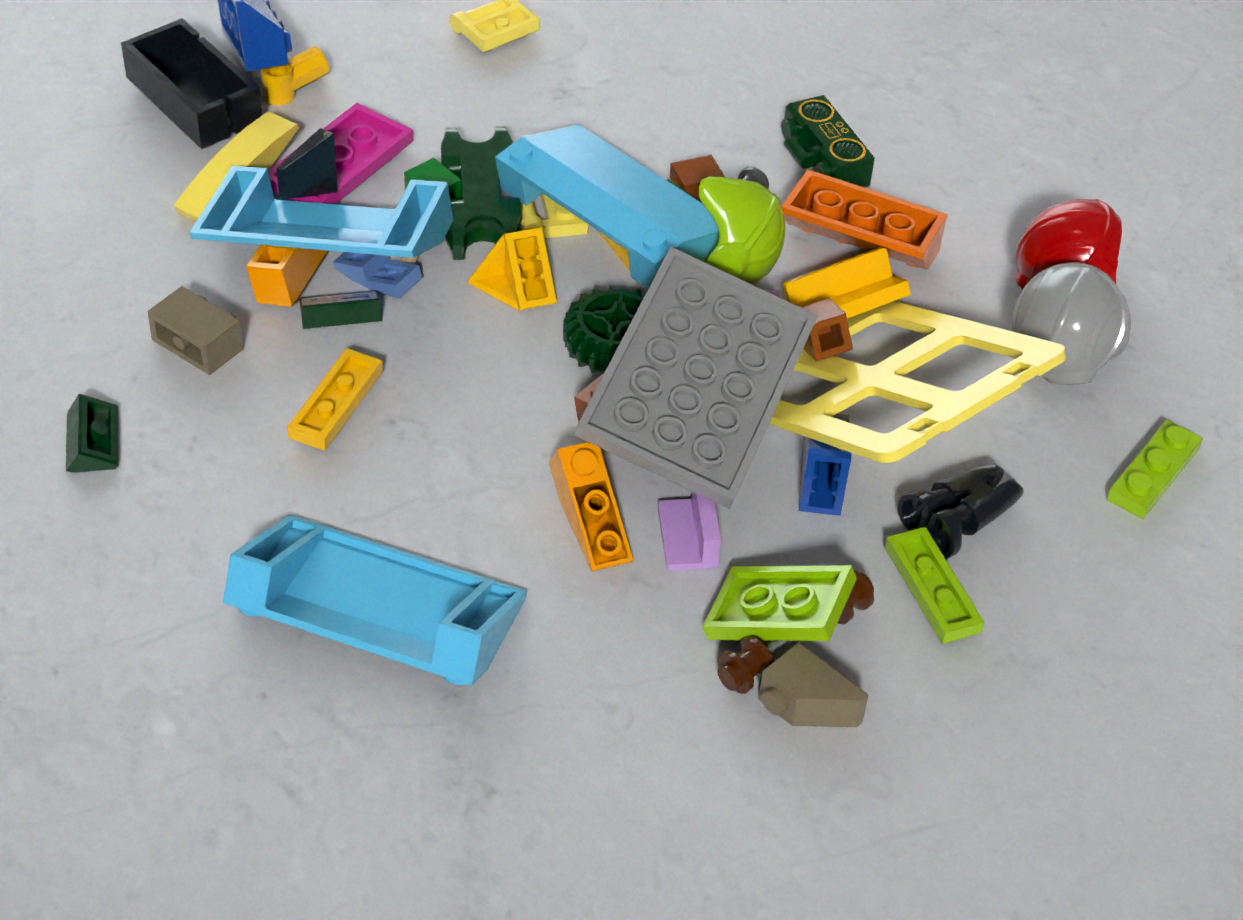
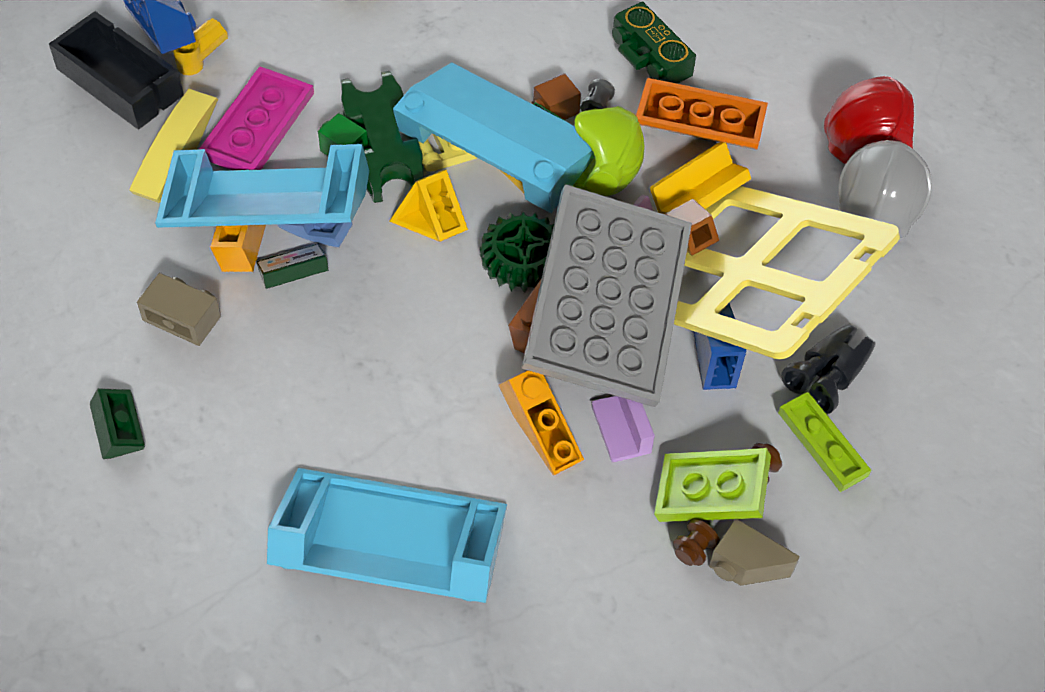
camera: 10 degrees left, 10 degrees up
(309, 168) = (240, 140): black slope -> none
(335, 399) = (310, 354): yellow plate -> none
(1154, 469) = (969, 304): lime plate -> none

